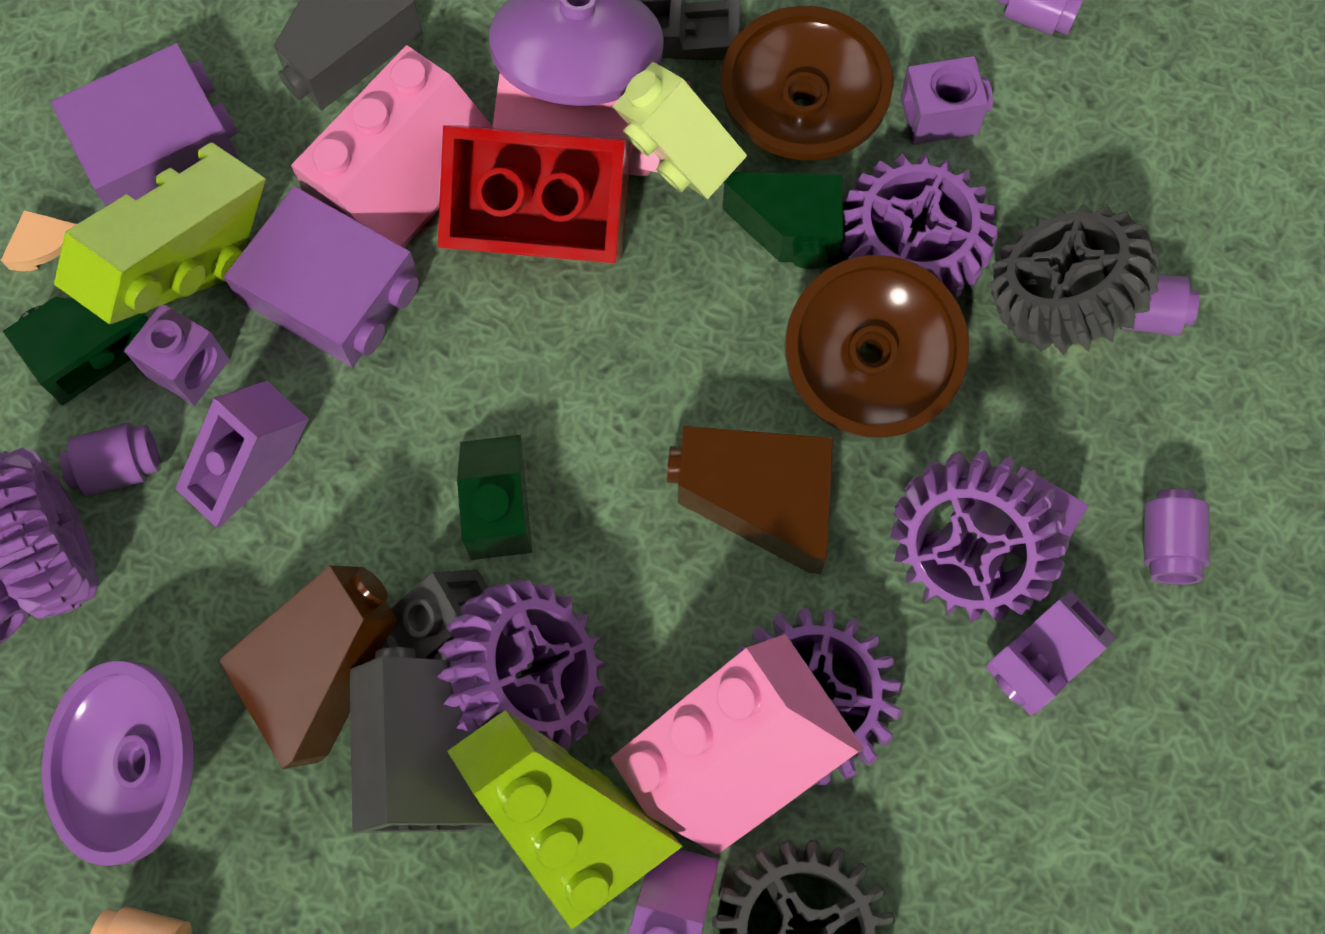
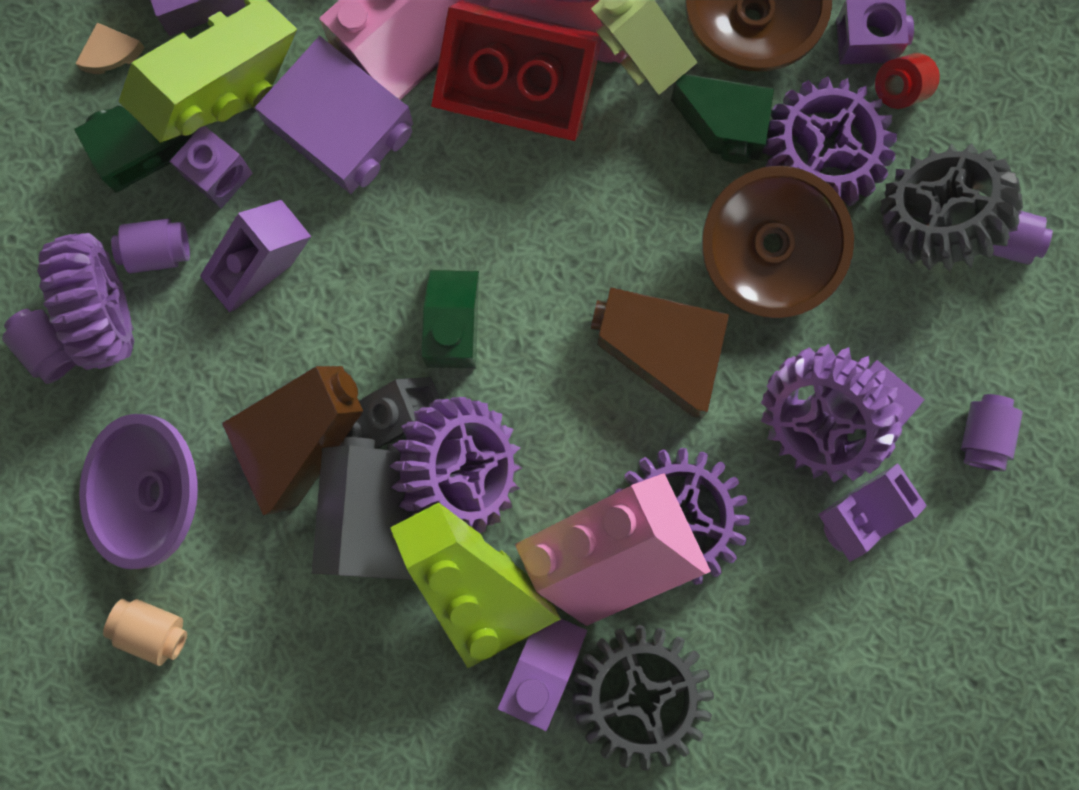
camera: 10 degrees right, 10 degrees up
(994, 147) = (907, 80): none -> red brick

